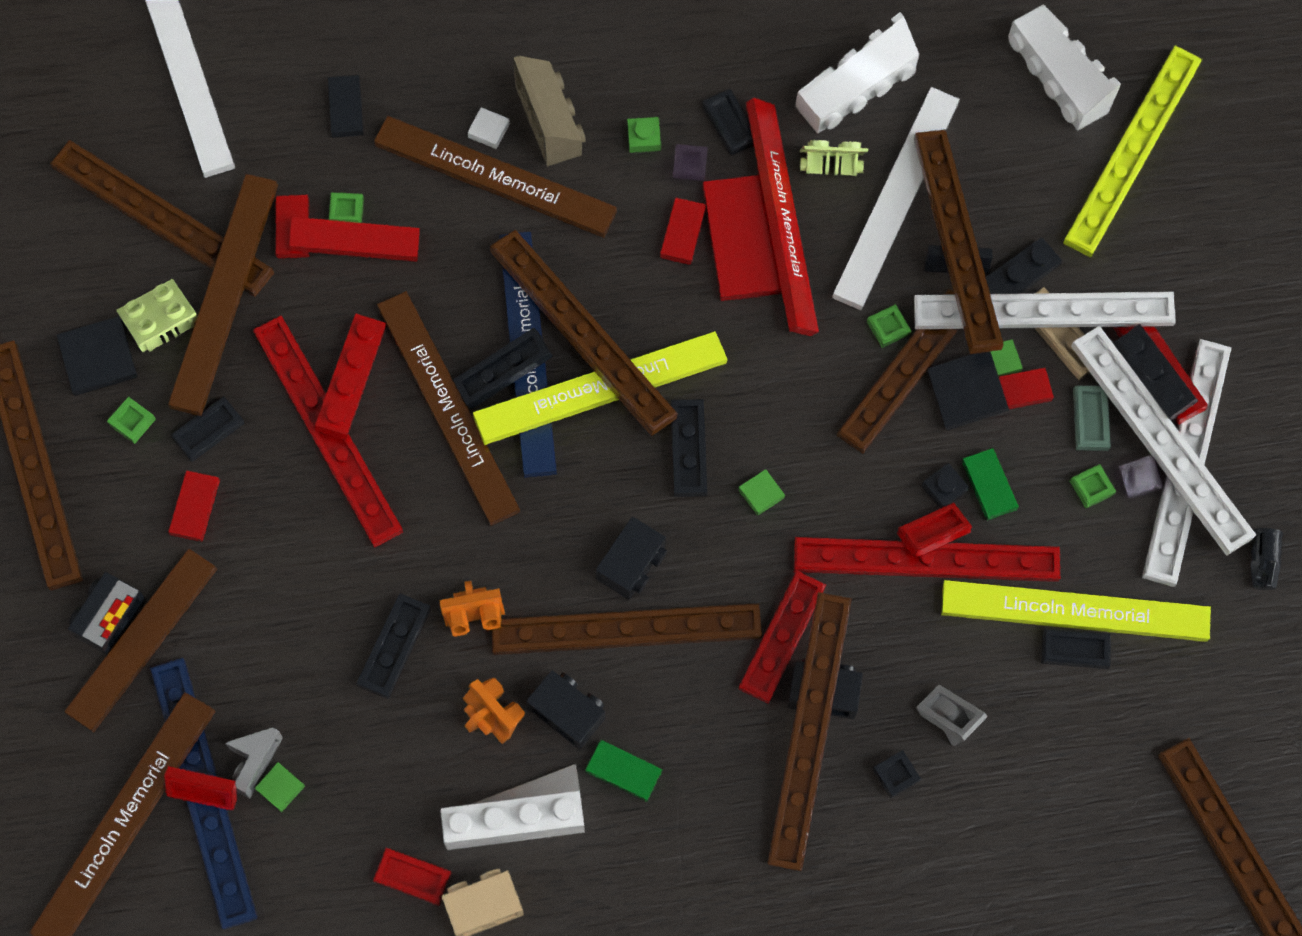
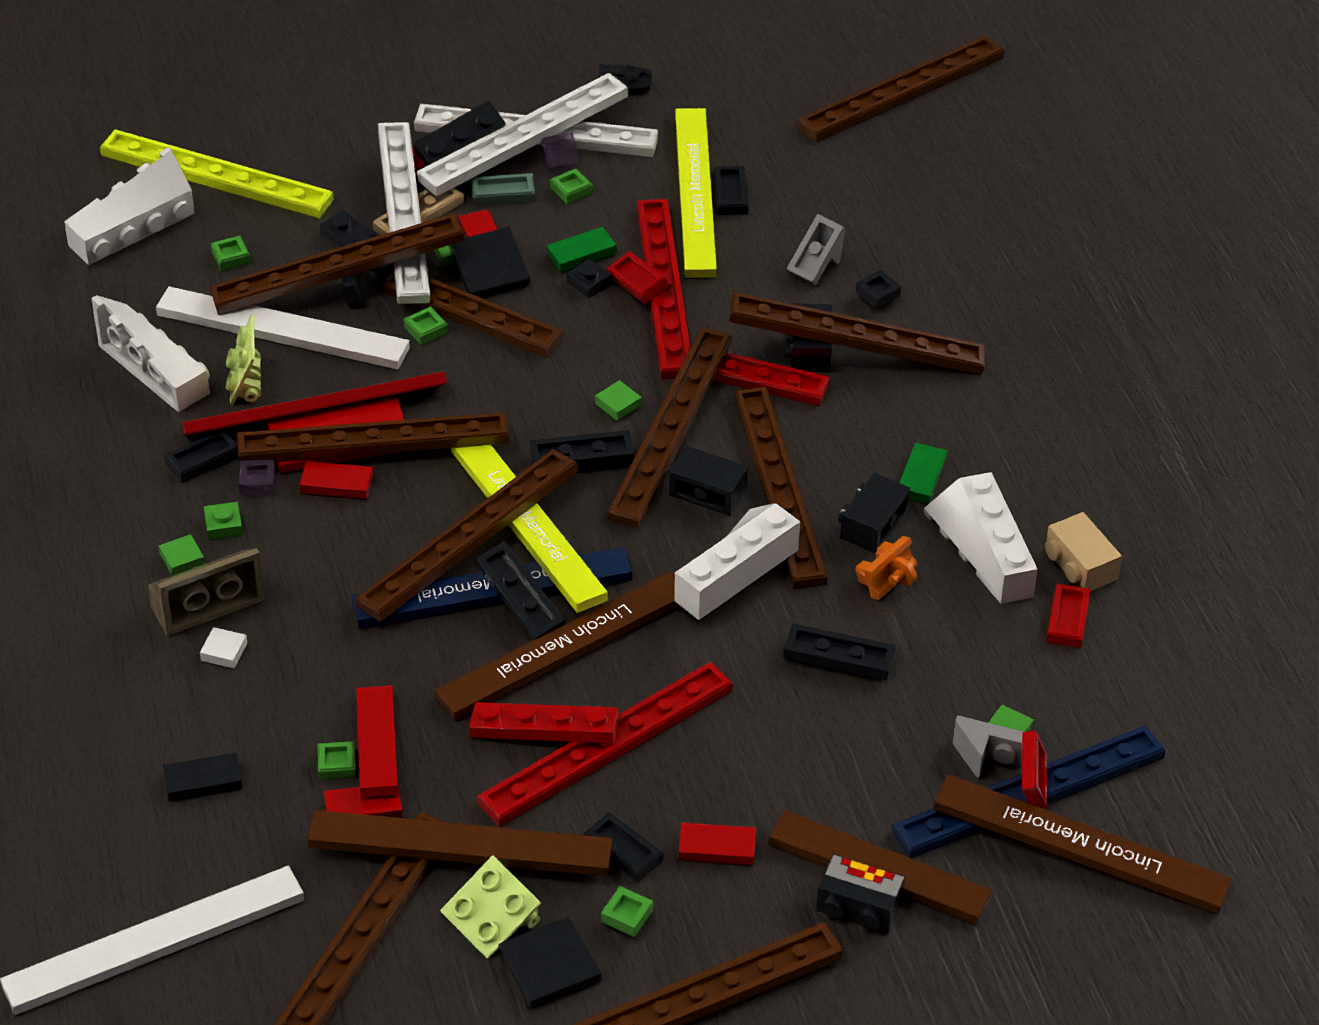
camera: 95 degrees left, 25 degrees down
(472, 606) = (797, 601): orange hips -> none
(495, 176) = (281, 639): reddish brown tile -> none
(521, 572) = (750, 550): none -> white wedge
(605, 99) = (181, 554): none -> bright green tile
(713, 534) = (669, 428): none -> reddish brown tile
(723, 263) = (373, 437): none -> reddish brown tile
(1010, 157) = (230, 253): none -> bright green tile

